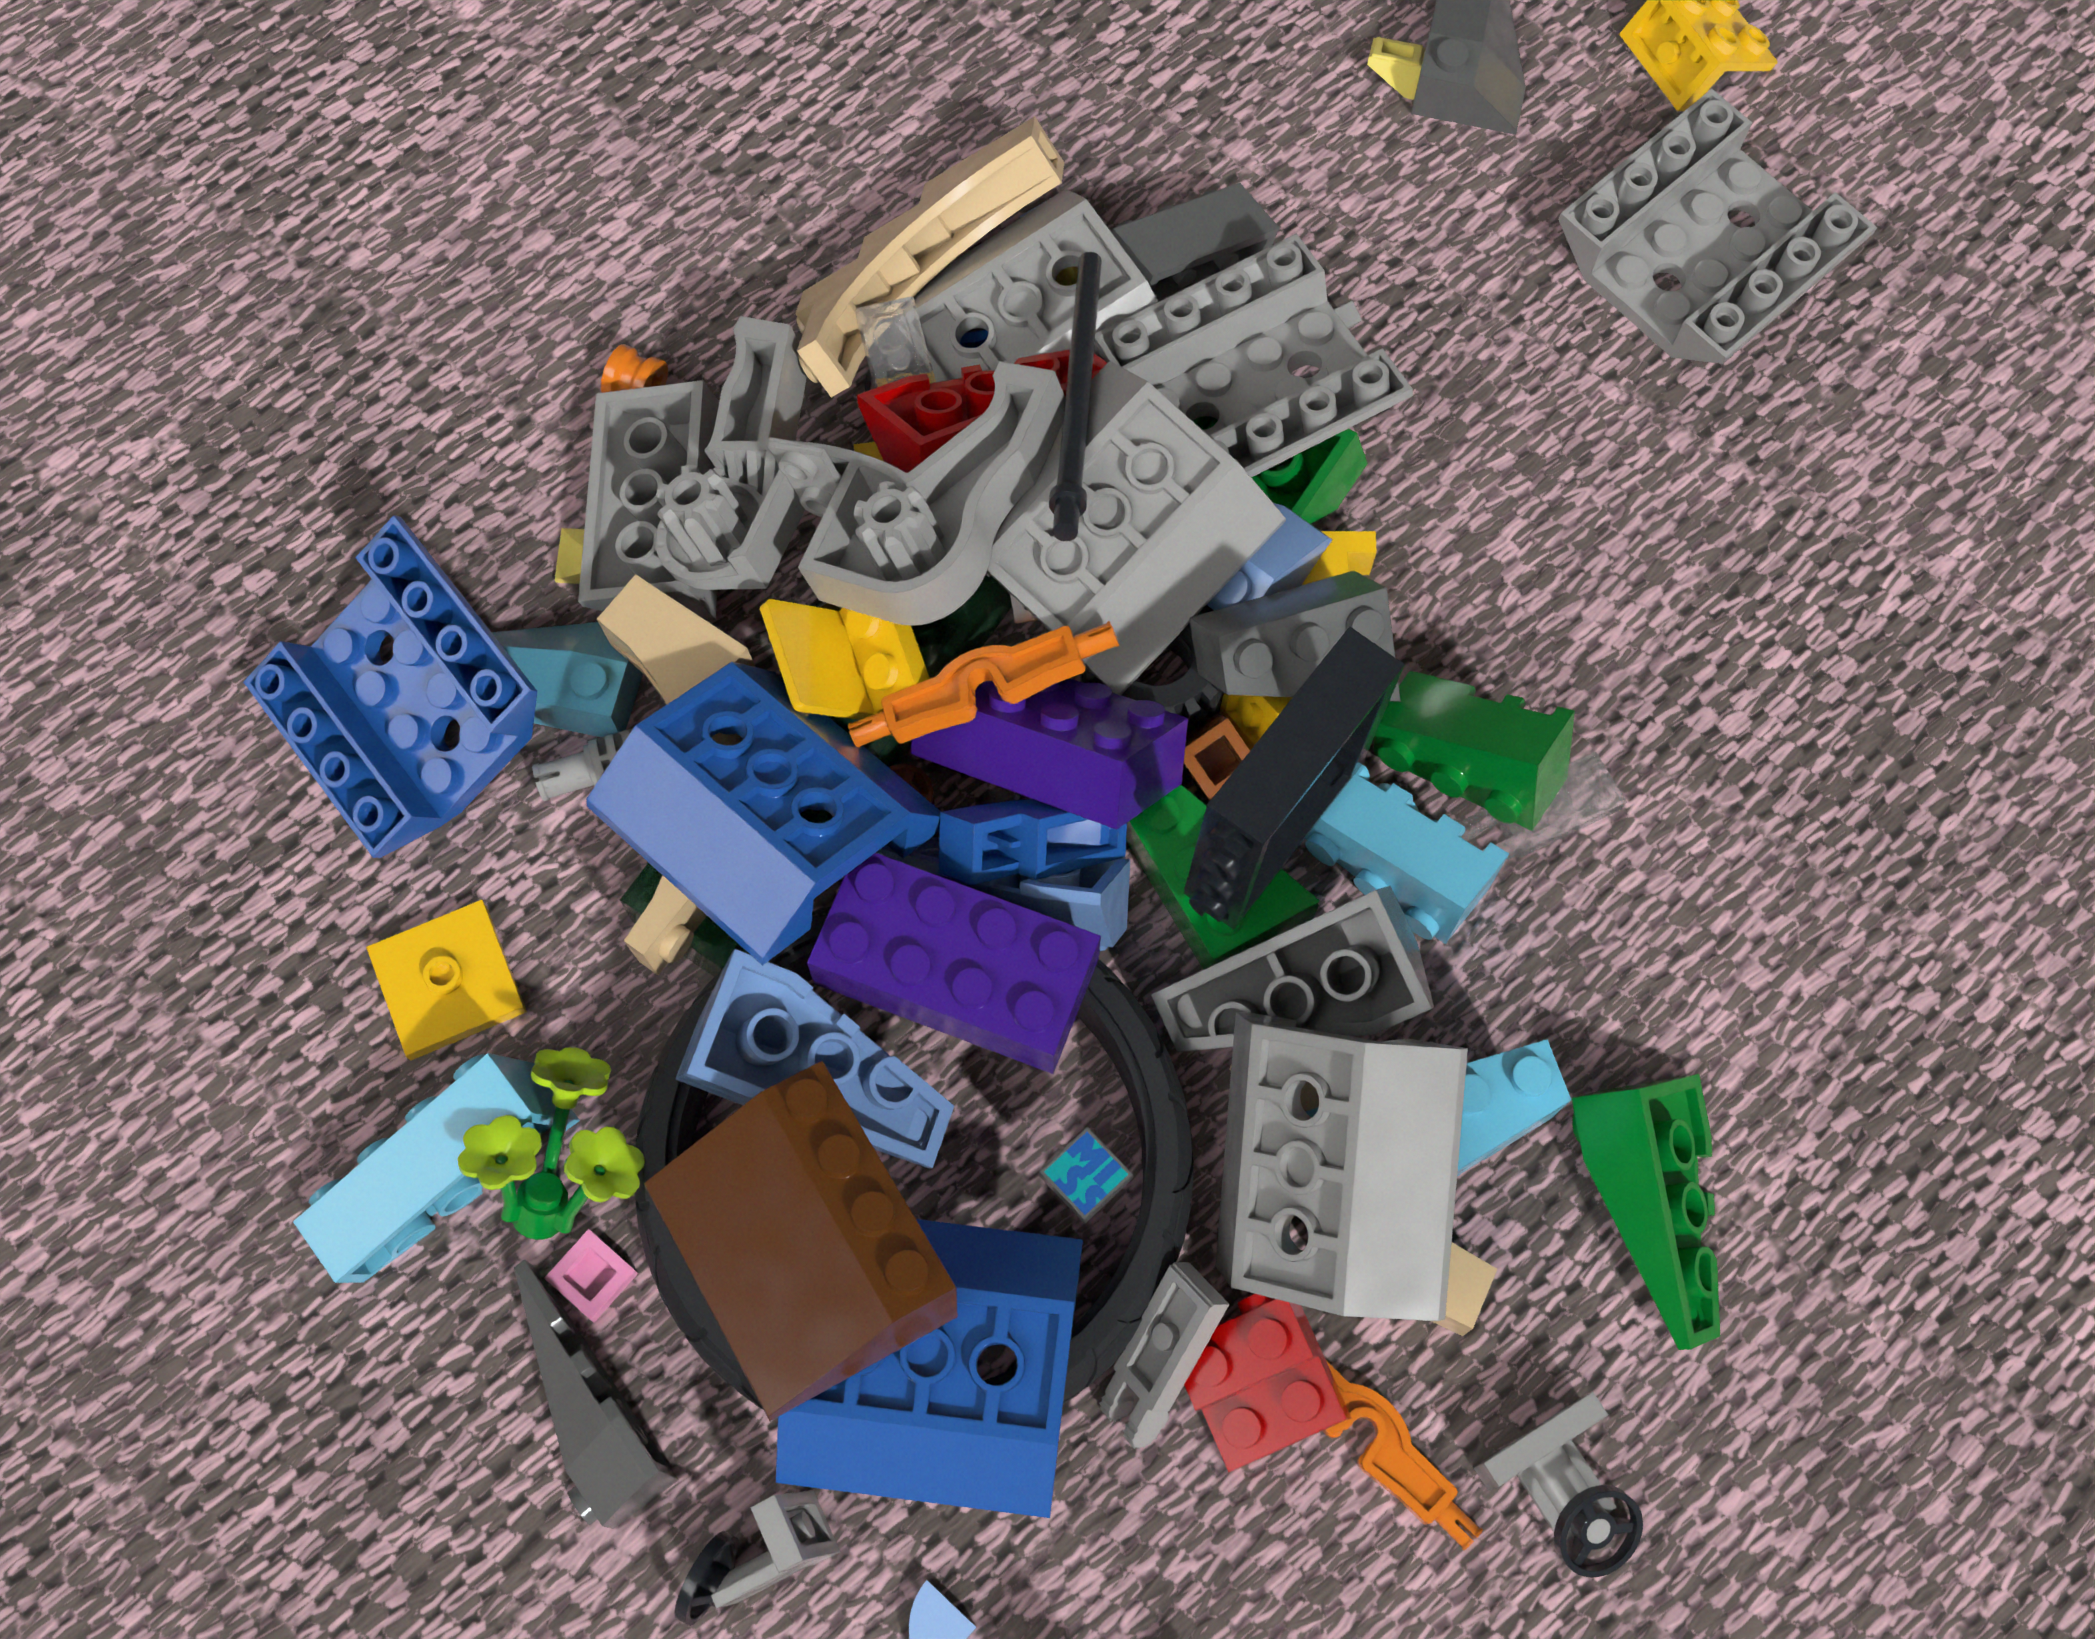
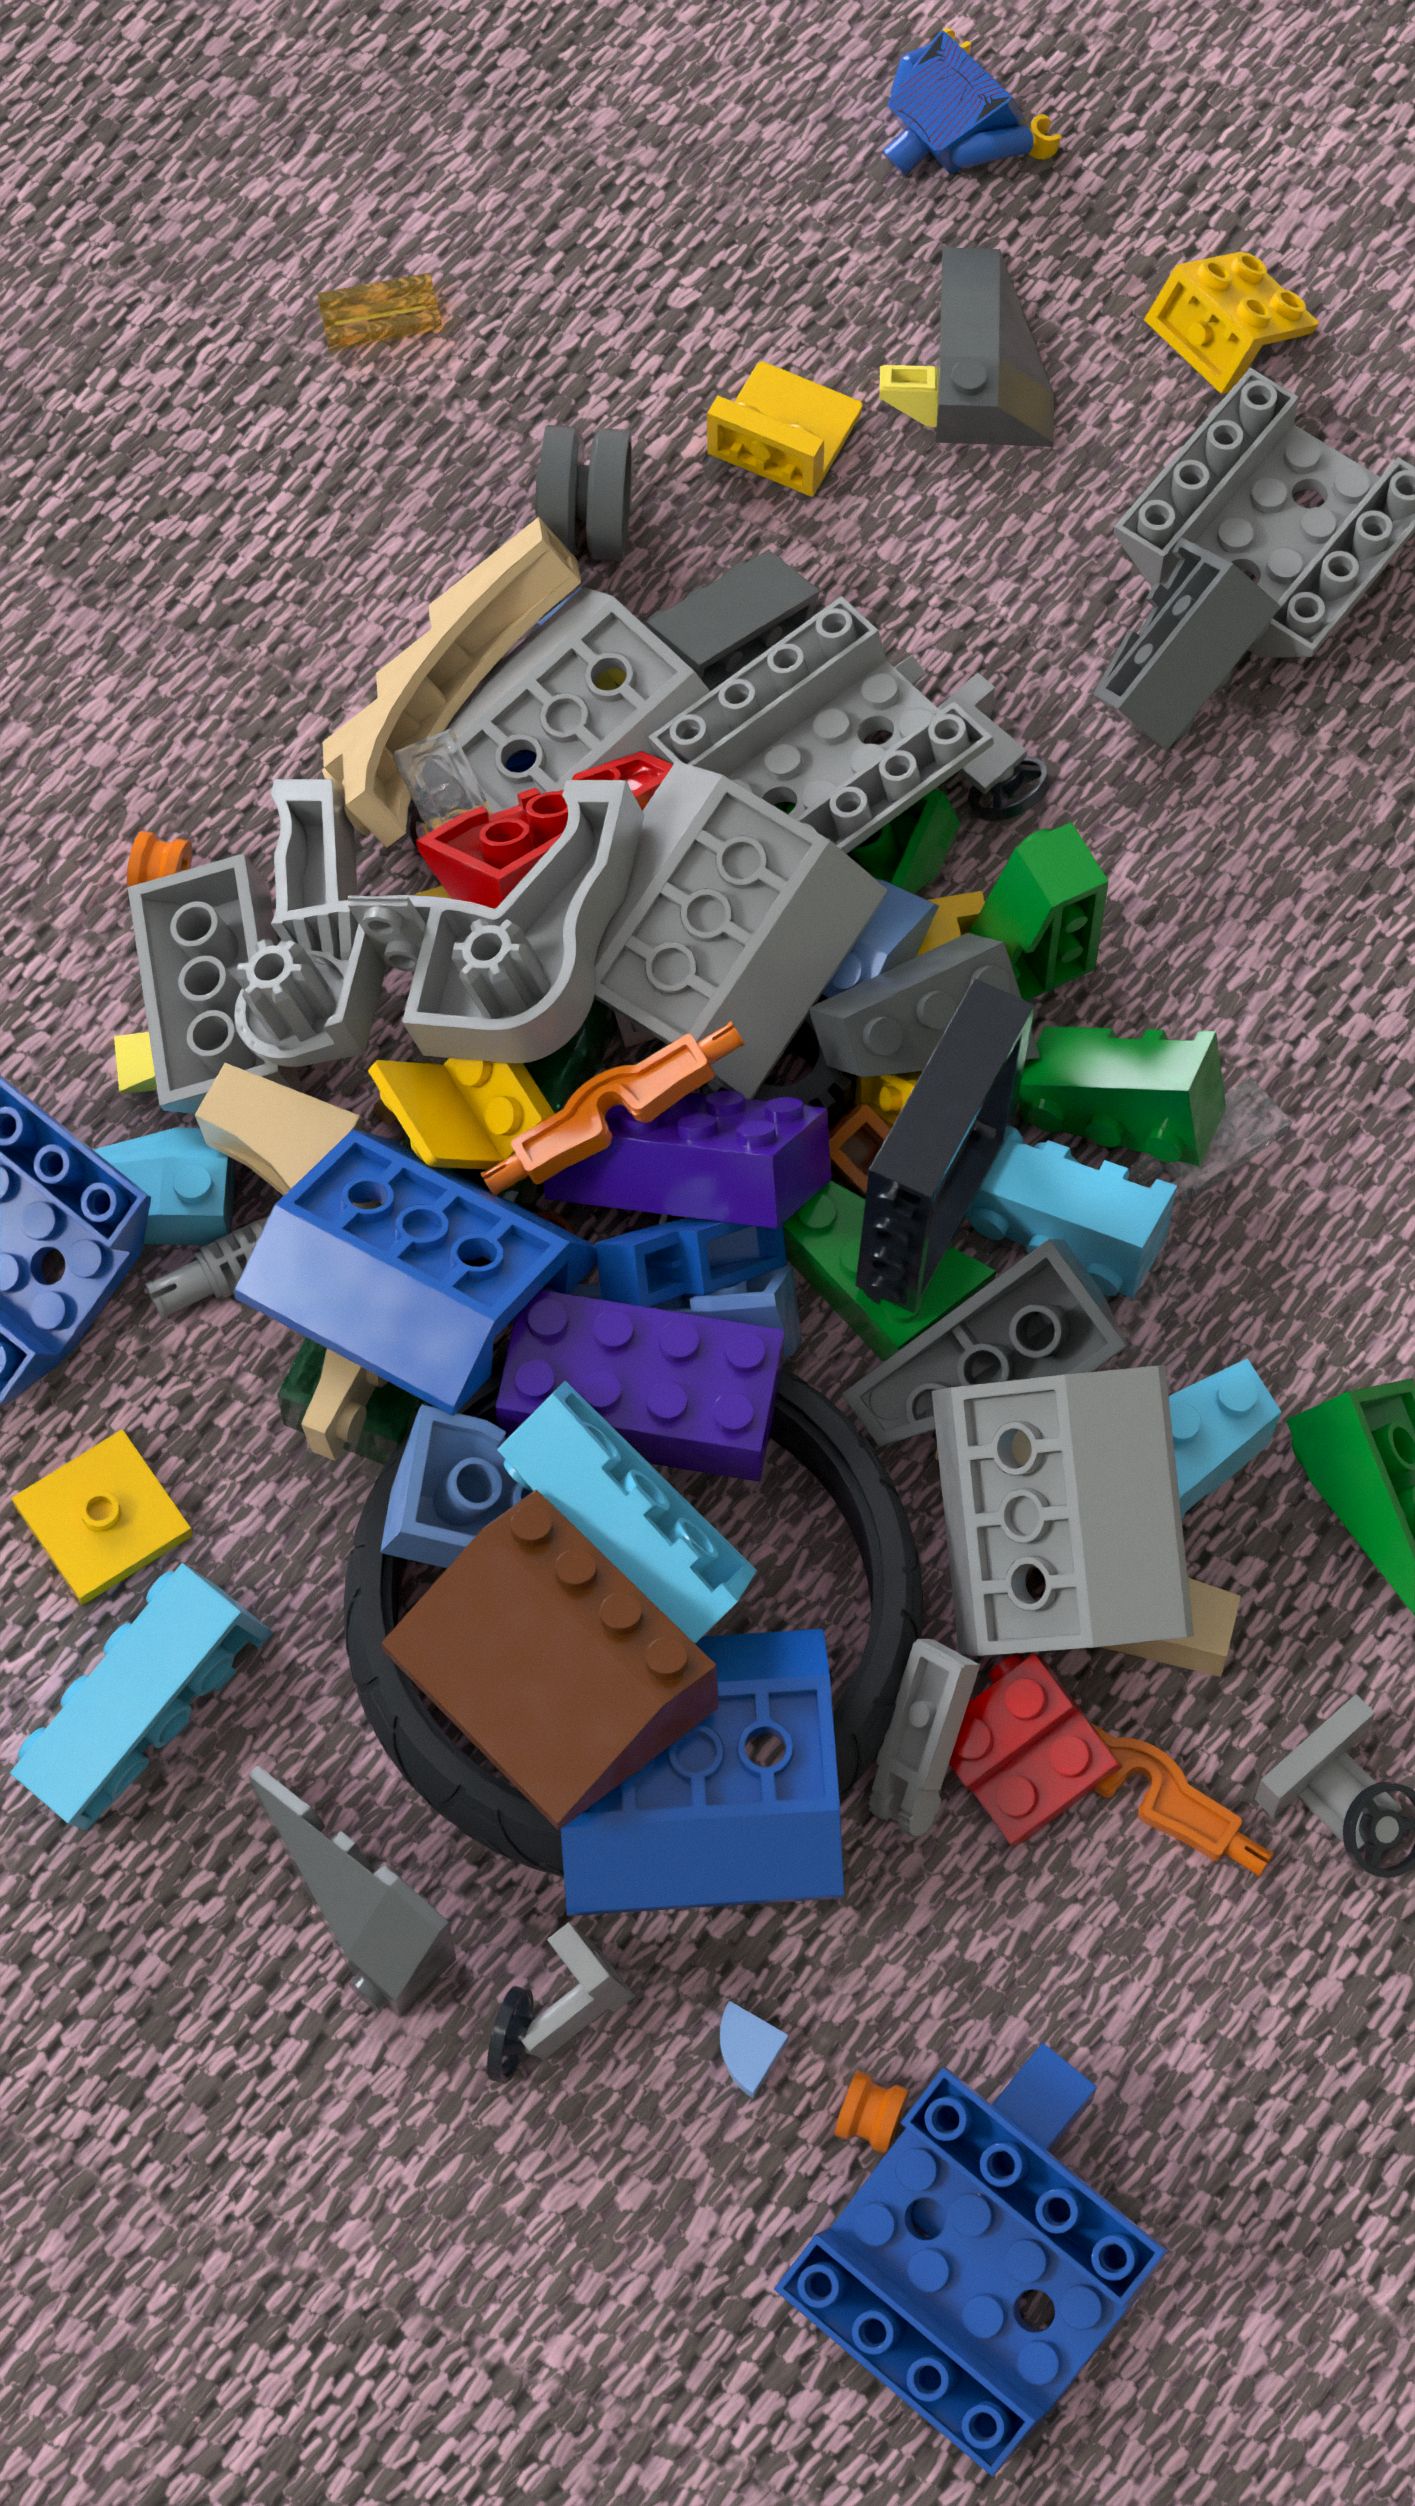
camera: 10 degrees left, 5 degrees down
(591, 1275) = (324, 1777): bright pink tile -> none
(597, 1161) = (222, 1652): lime plant -> none
(912, 1102) = (627, 1511): none -> medium azure wedge
(1068, 497) = (666, 905): black bar -> none
(1085, 1175) = (813, 1569): tile -> none
(1086, 102) = (586, 493): none -> dark grey wheel
(1274, 77) = (782, 427): none -> yellow bracket
(1416, 418) = (1003, 766): none -> piece
(1433, 560) = (1047, 910): none -> green wedge
(1608, 333) = (1186, 645): none -> dark grey wedge

